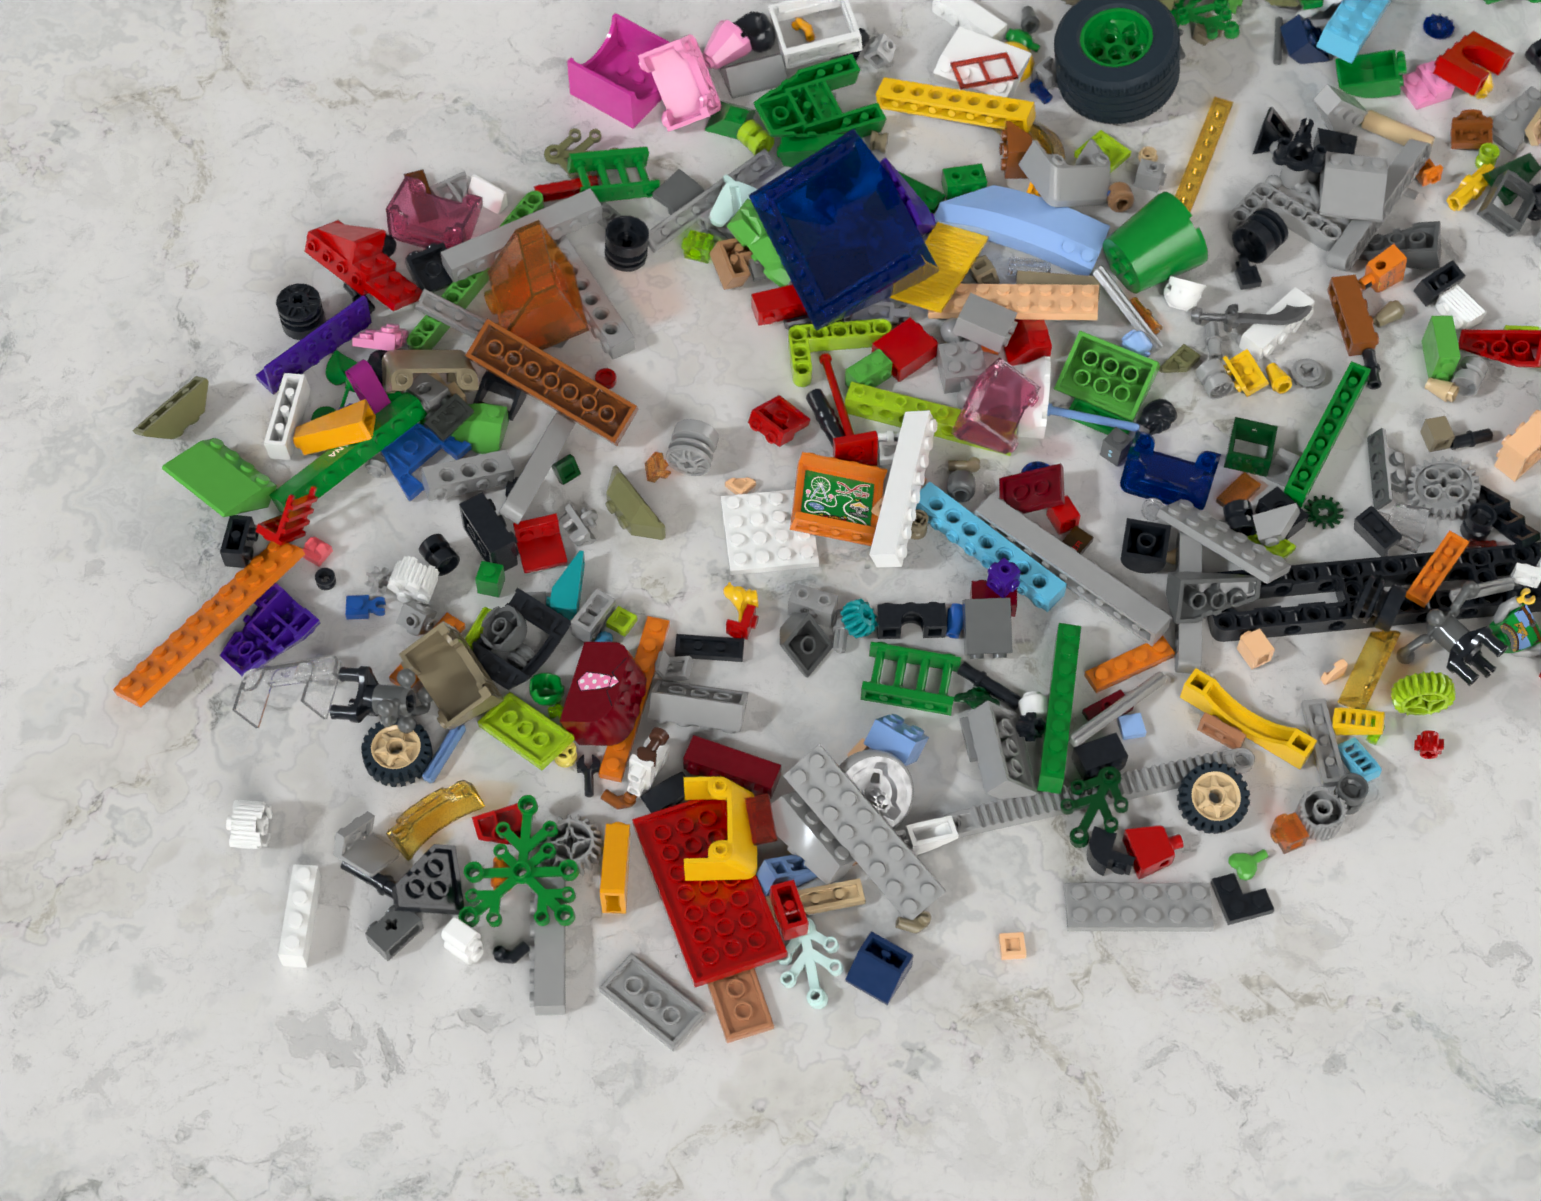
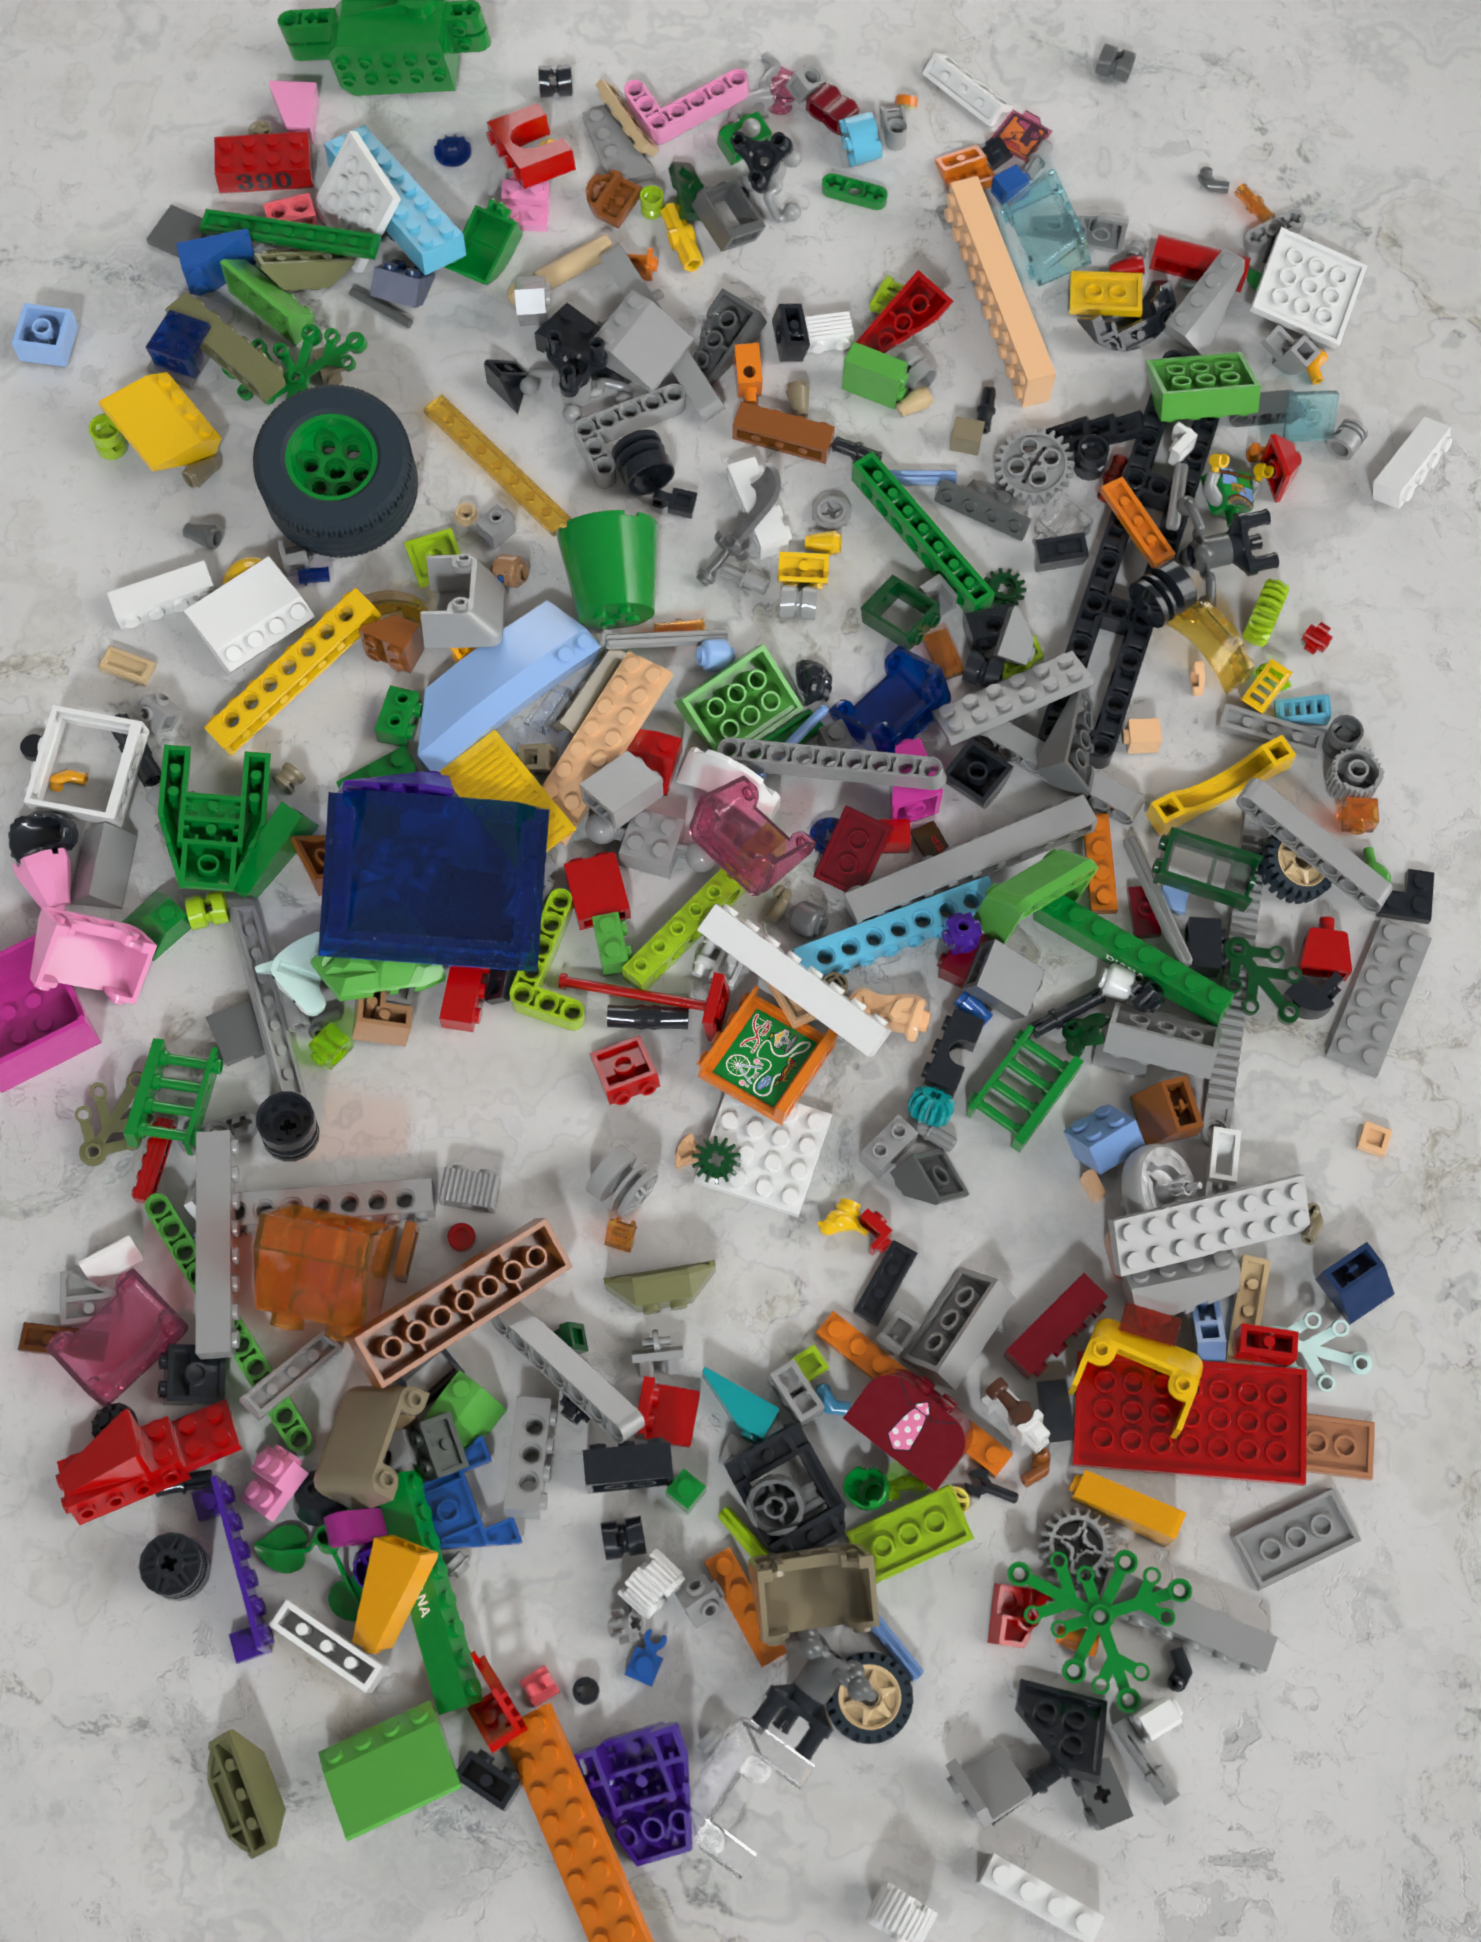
camera: 65 degrees left, 10 degrees up
(426, 961) = (1167, 1791): none -> light grey pin
(432, 815) = (966, 1691): clear yellow windscreen -> none
(577, 349) = (406, 1251): none -> dark orange tile
(640, 366) = (470, 1189): none -> light grey brick
(740, 507) = (726, 1165): none -> dark green gear
(906, 24) = (127, 666): none -> tan tile
(922, 572) = (902, 1011): none -> light nougat animal
(947, 782) = (1167, 1111): none -> dark orange slope
(980, 60) = (268, 617): clear red window -> none
(1022, 37) = (225, 556): green plant -> none
(1069, 607) = (1033, 889): none -> bright green windscreen
(1088, 441) = (841, 769): none -> light grey beam
(1108, 504) = (913, 802): none -> dark pink slope
(1164, 728) = (1206, 868): none -> door
(1181, 360) = (751, 622): olive tile -> none
(1183, 293) = (675, 573): white helmet -> none
(1221, 732) = (1211, 821): nougat plate -> none
(1231, 795) = (1314, 845): none -> light grey beam
(1380, 418) = (924, 477): none -> medium blue axle

